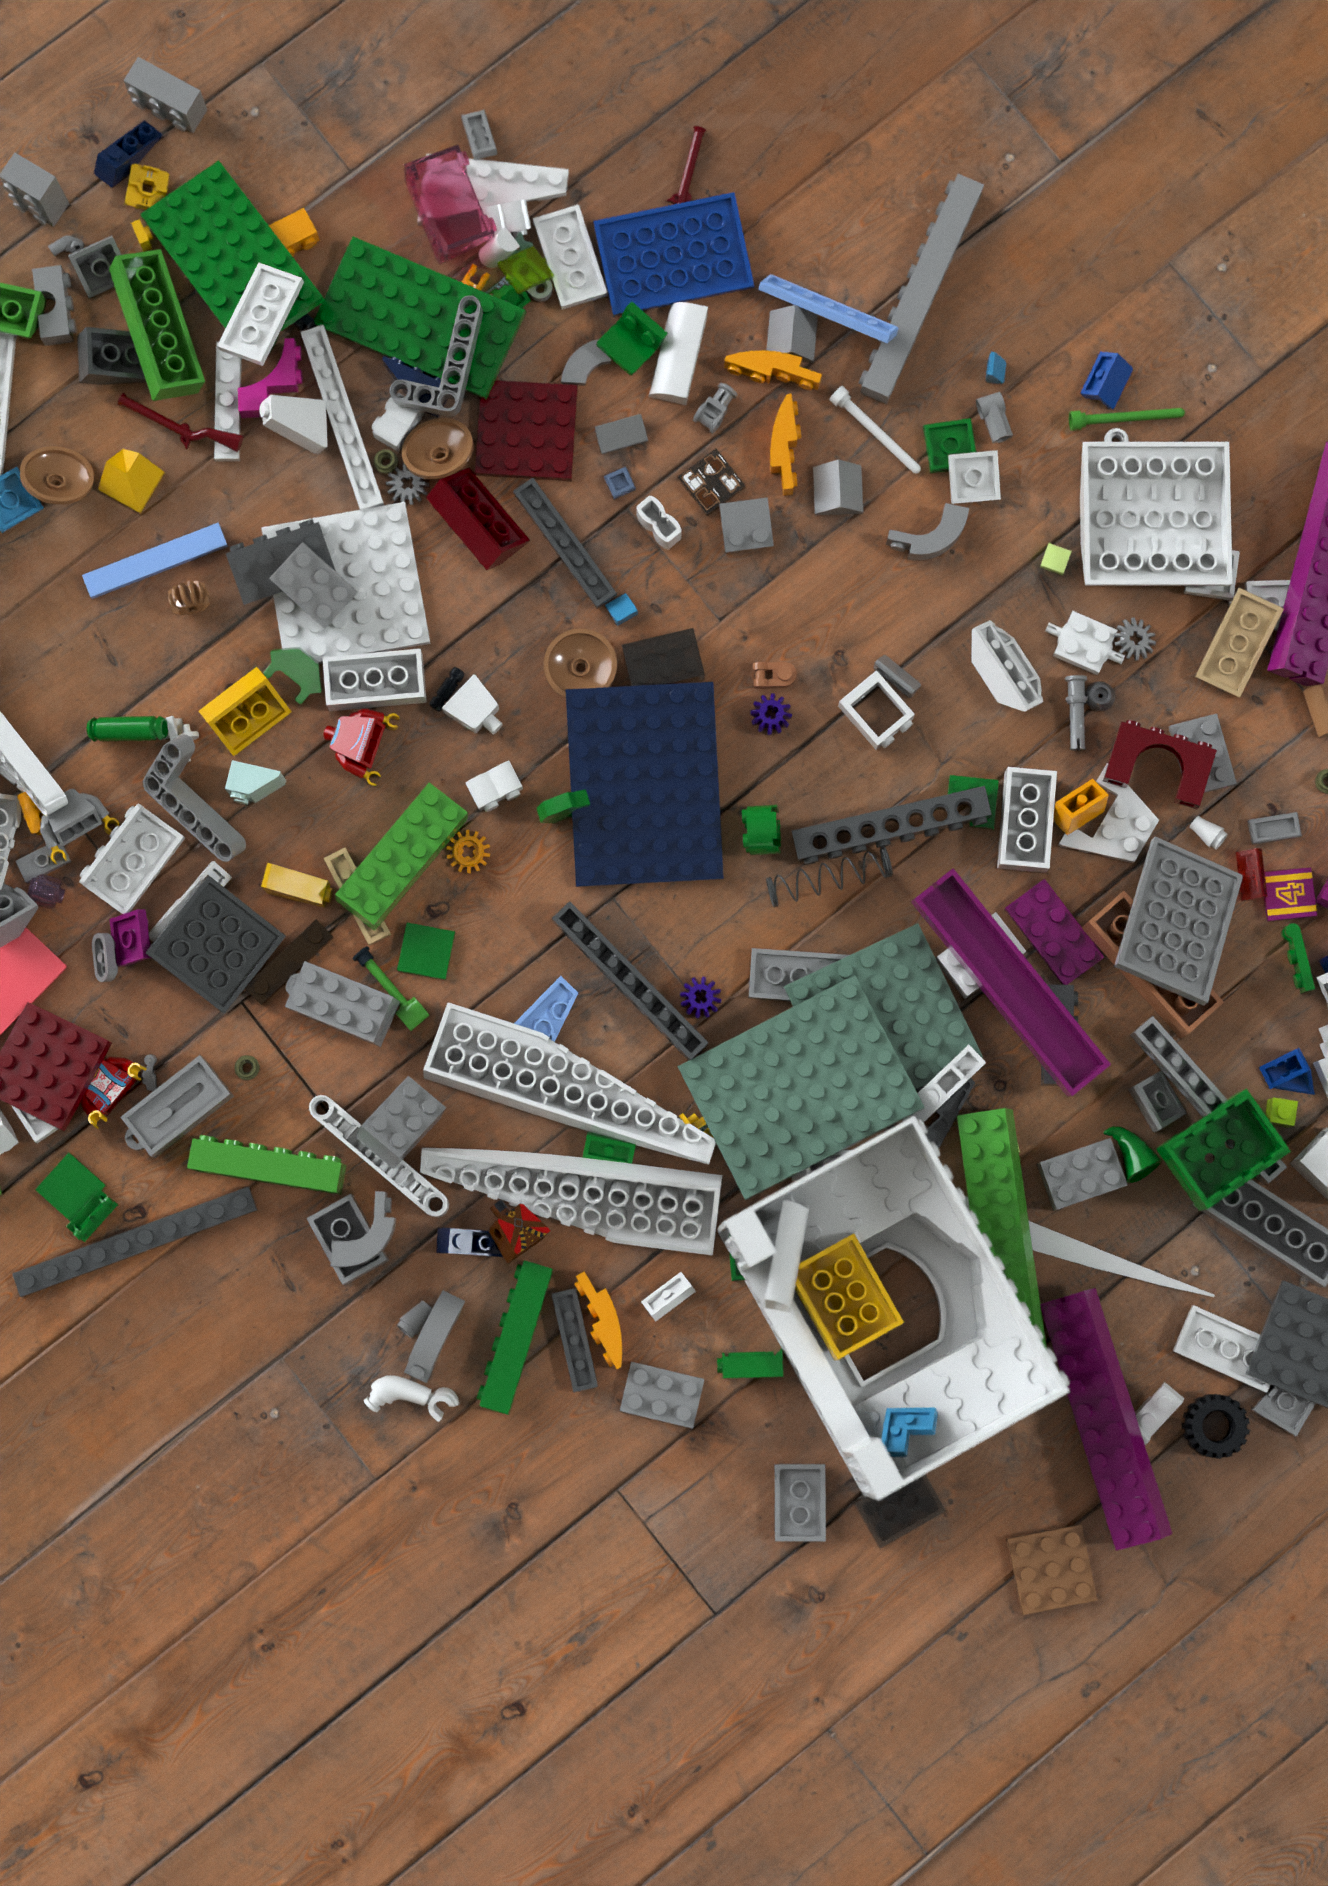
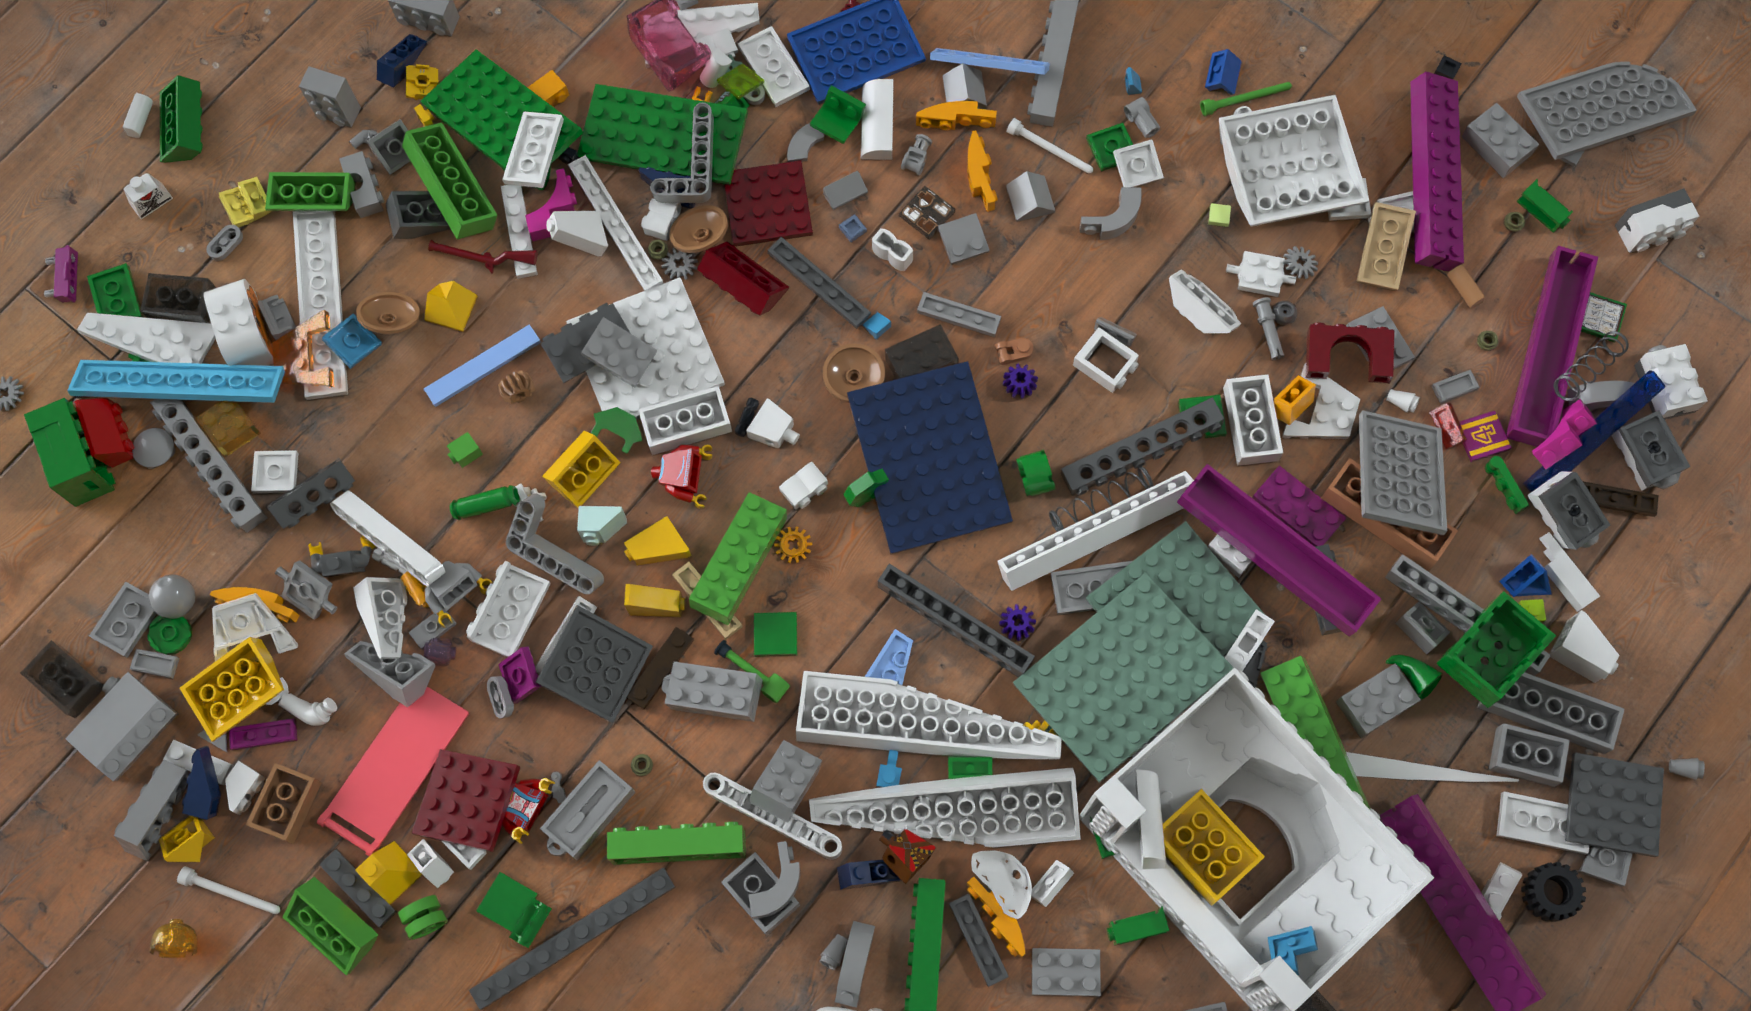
camera: 10 degrees left, 10 degrees down
(115, 661) = (464, 450): none -> bright green brick
(313, 819) = (656, 544): none -> yellow slope
(518, 1138) = (889, 774): none -> dark azure plate
(615, 1283) = (1002, 881): none -> white piece
(719, 617) = (959, 314): none -> light grey plate
(812, 913) = (1094, 532): none -> white brick
(1232, 1271) = (1529, 755): none -> light grey brick

